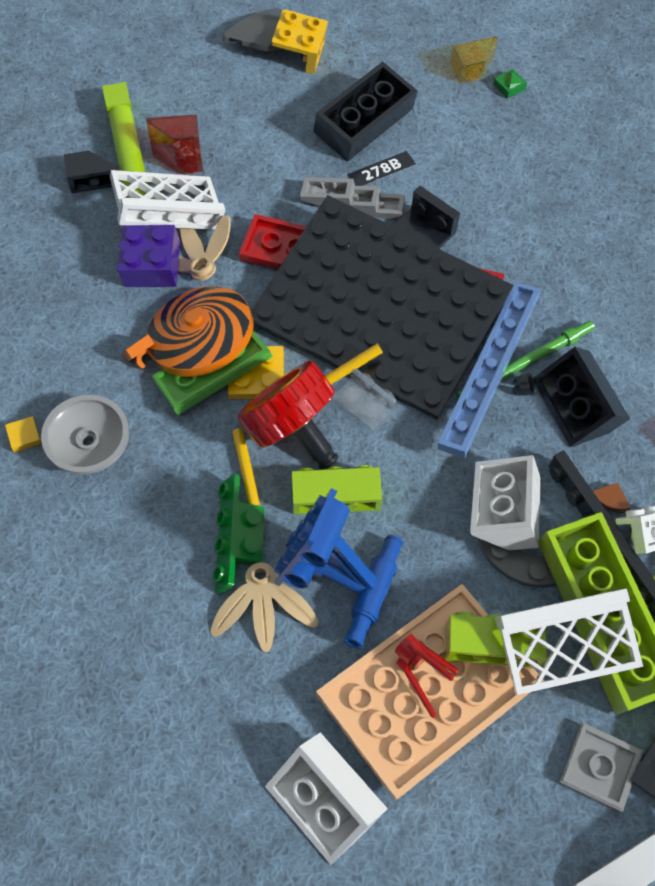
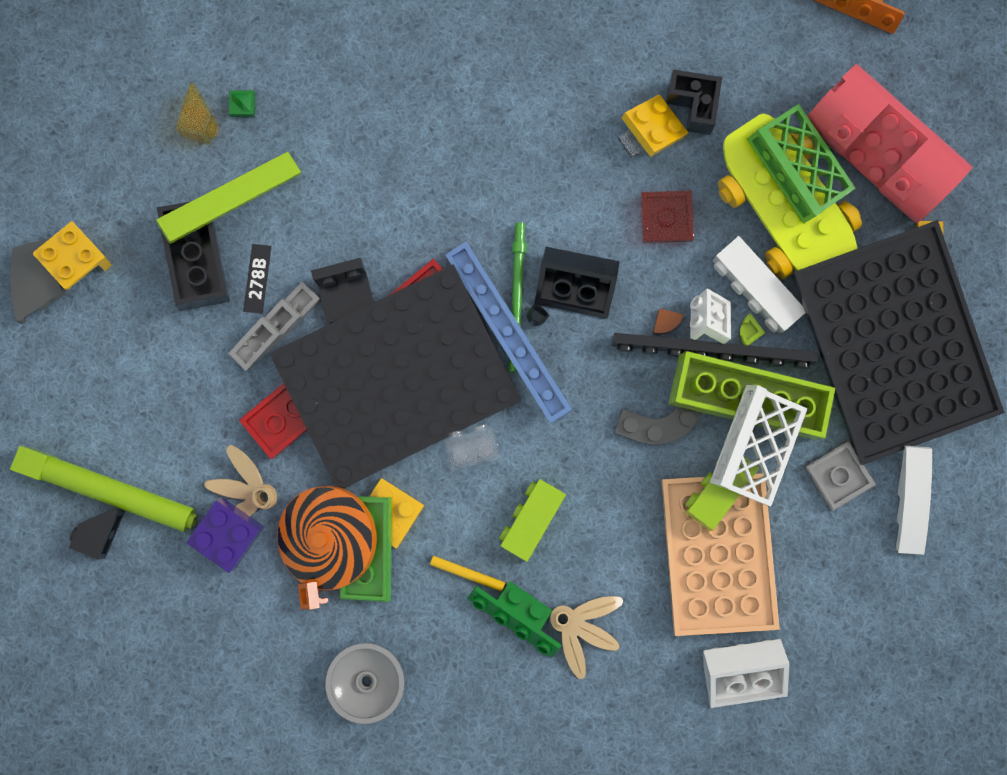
camera: 50 degrees left, 20 degrees up
(23, 434) = (326, 727): yellow tile -> none
(165, 210) = (194, 499): white fence -> none
(176, 142) = (123, 440): clear red slope -> none
(288, 409) = (452, 518): red wheel -> none
(322, 551) = (583, 576): blue plate -> none
(355, 362) = (438, 446): yellow bar -> none
(415, 653) = (694, 552): red plant -> none
(431, 104) = (228, 197): none -> lime tile
(507, 502) = (626, 405): white slope -> none

